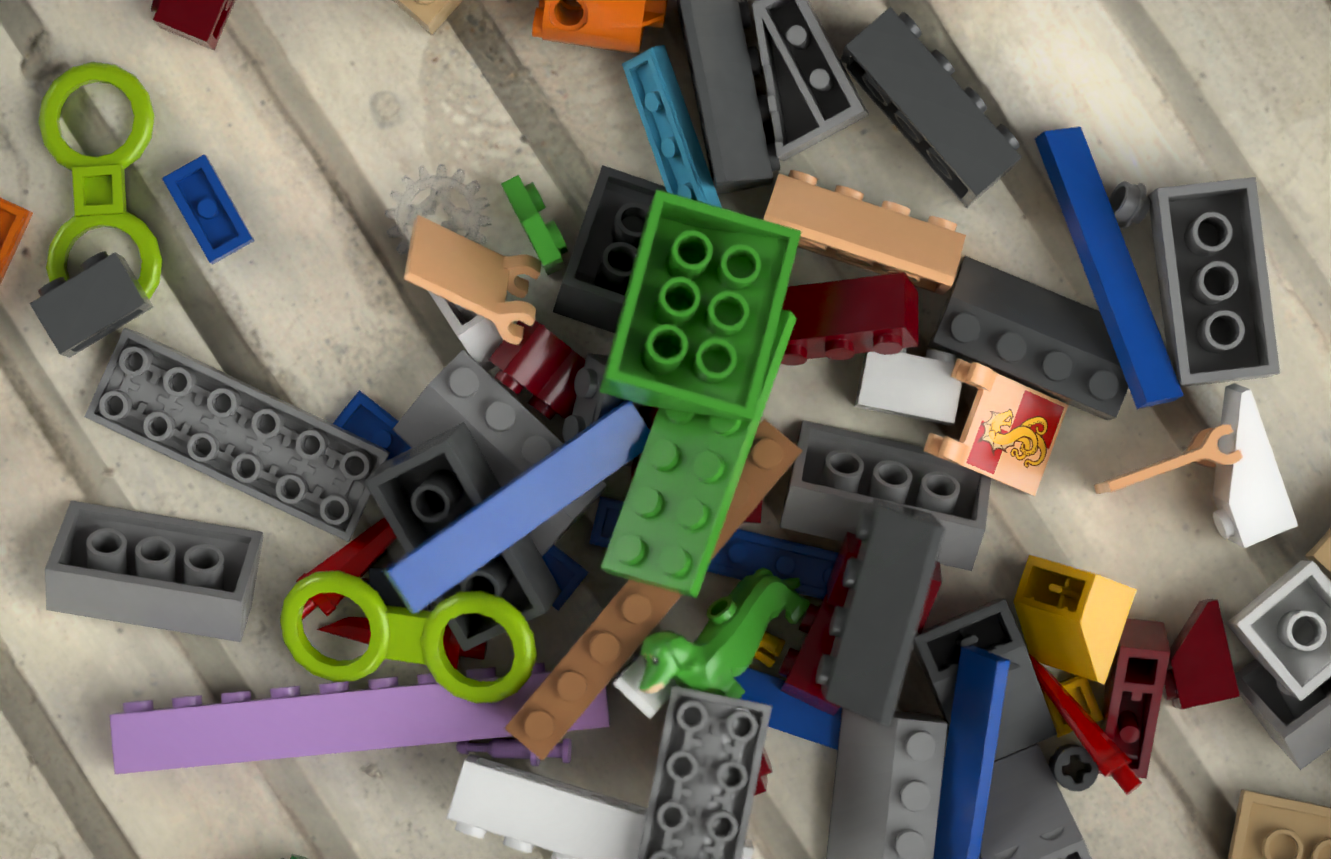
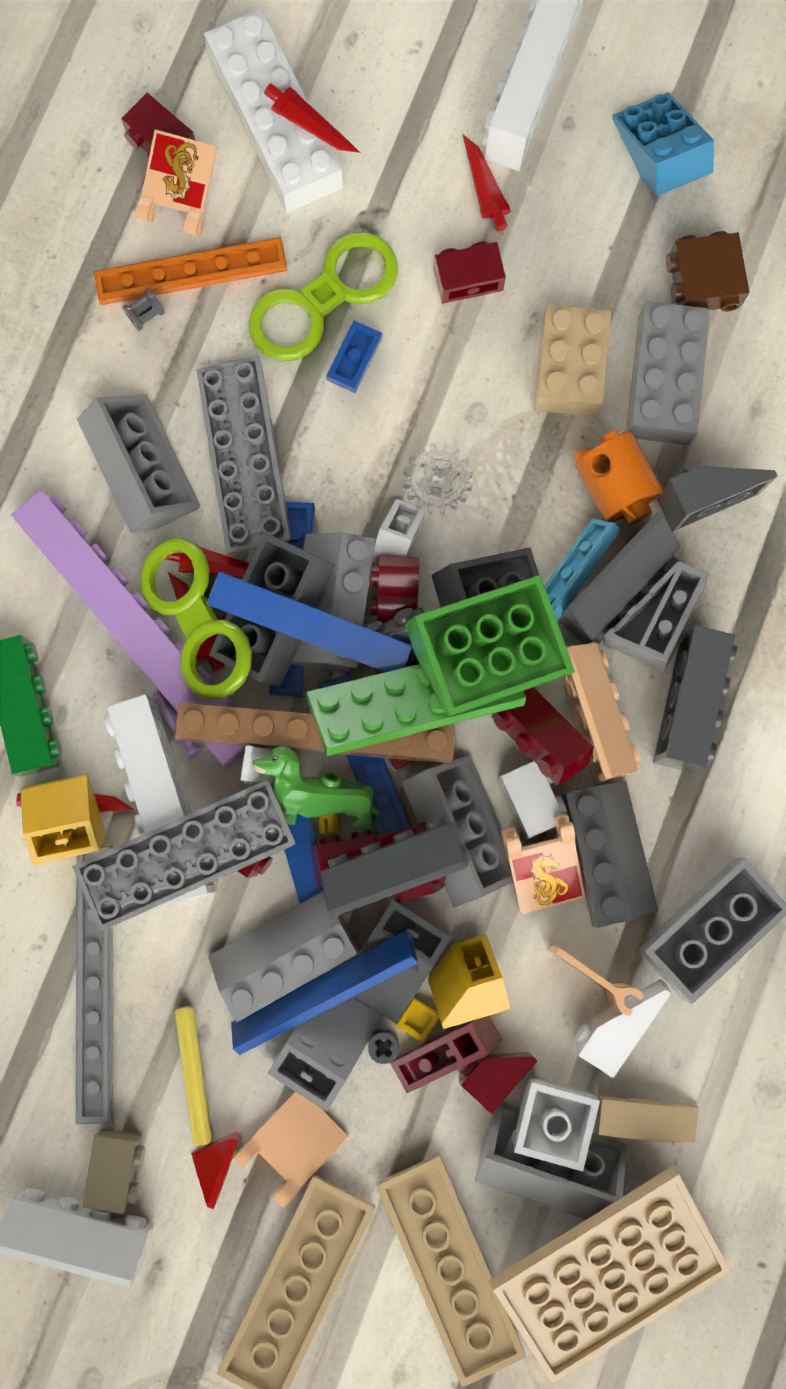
camera: 50 degrees right, 5 degrees down
(90, 303) = (258, 327): dark grey brick -> none
(472, 276) = (418, 513): light nougat flag -> none
(544, 237) = (468, 538): bright green plate -> none
(1101, 748) = (407, 1046): red bar -> none
(1108, 267) = (678, 864): blue tile -> none
(1129, 203) = (721, 851): light grey plate -> none

